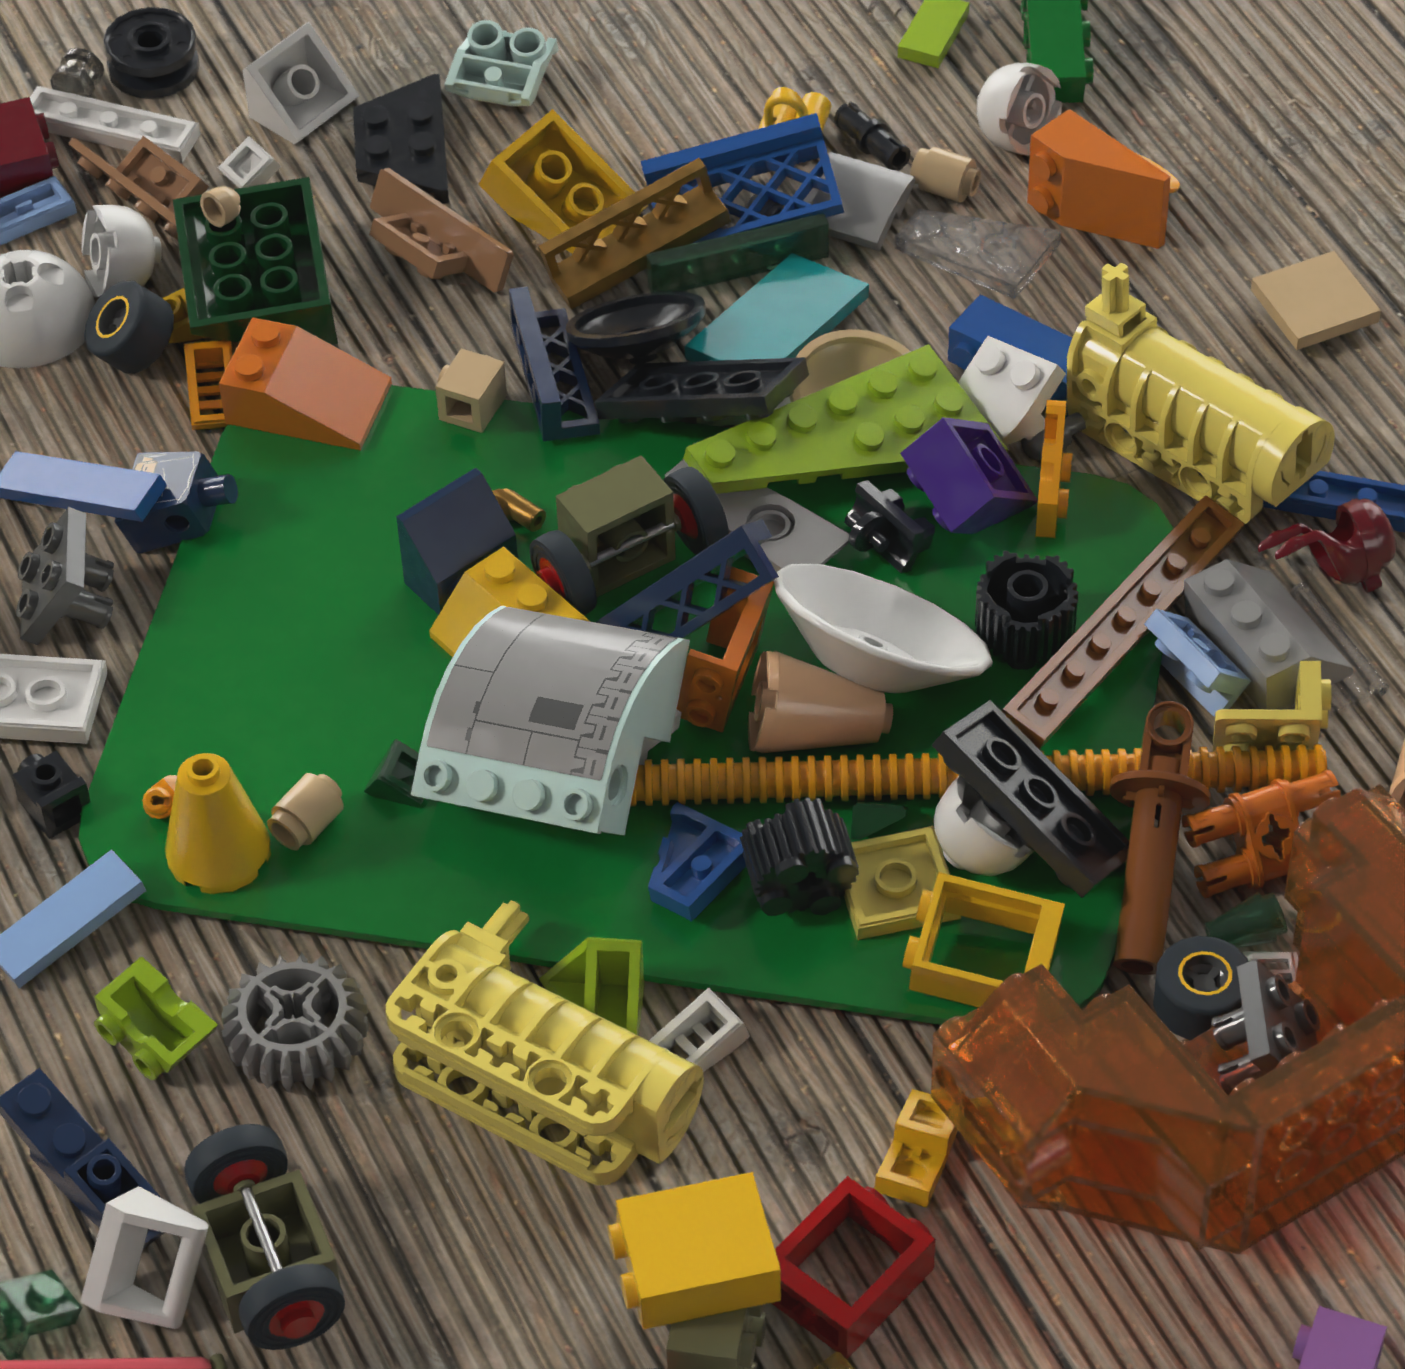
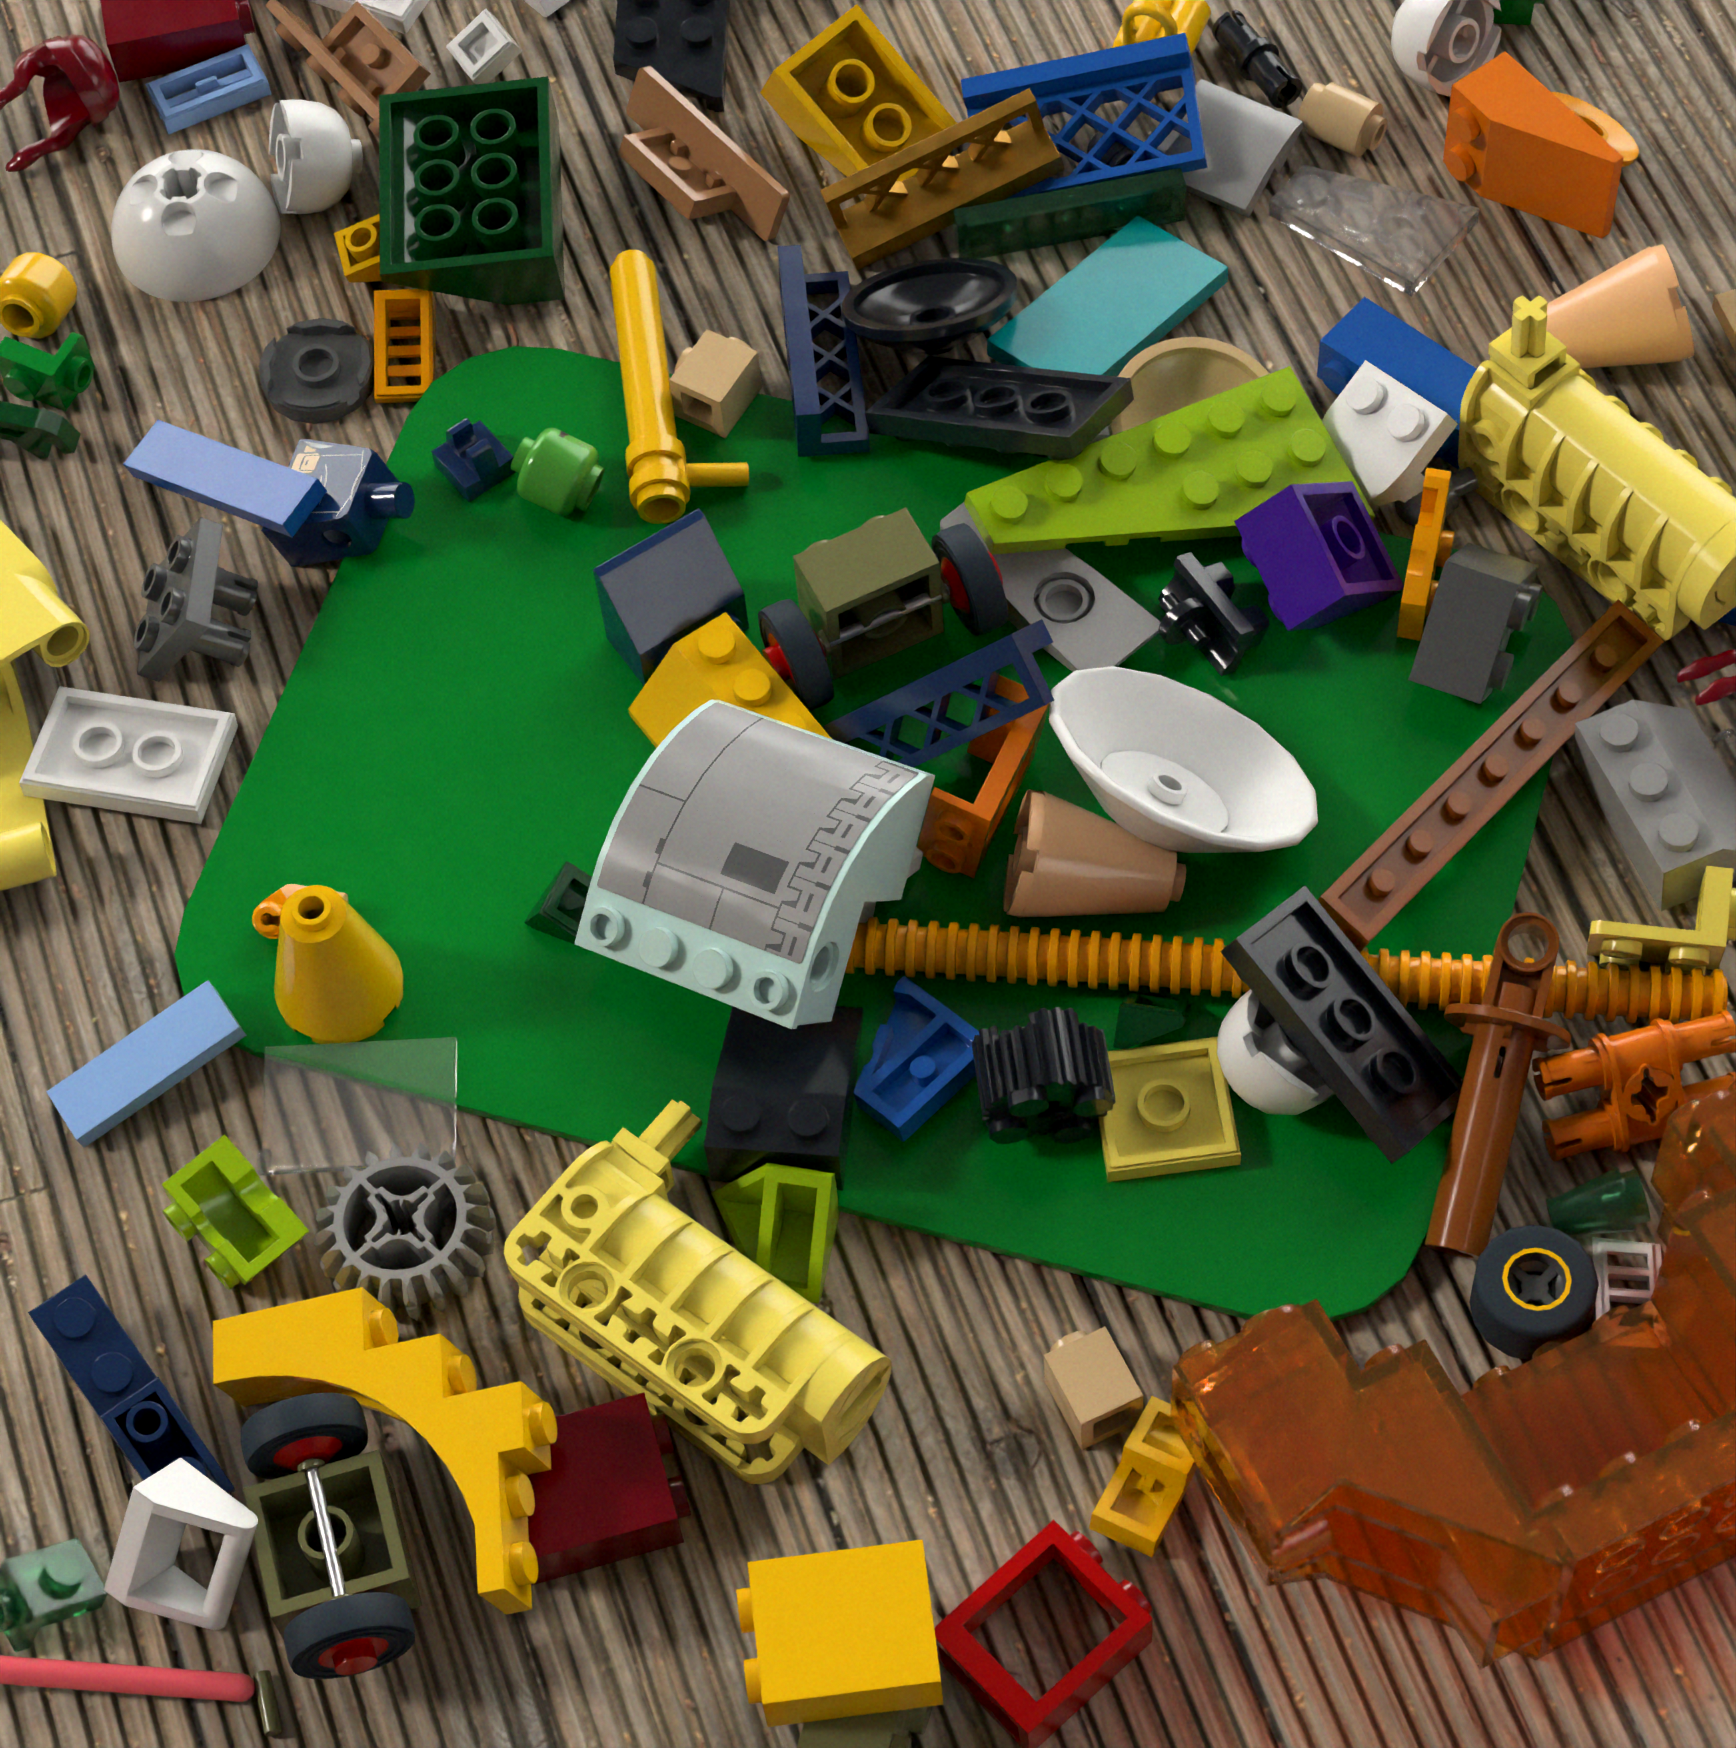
camera: 10 degrees right, 10 degrees up
(46, 783) = (147, 889): black brick -> none
(129, 327) = (310, 262): black wheel -> none
(141, 409) = (317, 371): none -> dark grey tile
(220, 205) = (434, 111): tan hinge -> none
(231, 930) = (356, 1097): none -> clear piece
(279, 460) = (472, 459): none -> dark blue tile
(300, 387) = (507, 360): orange slope -> none
(305, 811) = (448, 948): tan brick -> none
(325, 1121) = (483, 1435): none -> yellow arch
(351, 462) = (557, 472): none -> bright green head
(428, 443) = (655, 456): none -> yellow cylinder
(467, 1194) = (605, 1490): none -> dark red brick
(520, 509) = (746, 544): pearl gold arm -> none
(590, 889) = (783, 1095): none -> black slope
(692, 1018) = (887, 1273): white slope -> none
(864, 1085) = (1092, 1386): none -> tan brick
(984, 904) = (1278, 1162): yellow window -> none
(1026, 607) = (1370, 746): black brick -> none
(1094, 515) = (1471, 620): none -> dark grey brick
(1190, 292) = (1625, 315): none -> light nougat cone
(1196, 661) = (1580, 832): light blue bracket -> none
(1270, 1021) = (1616, 1388): dark grey plate -> none

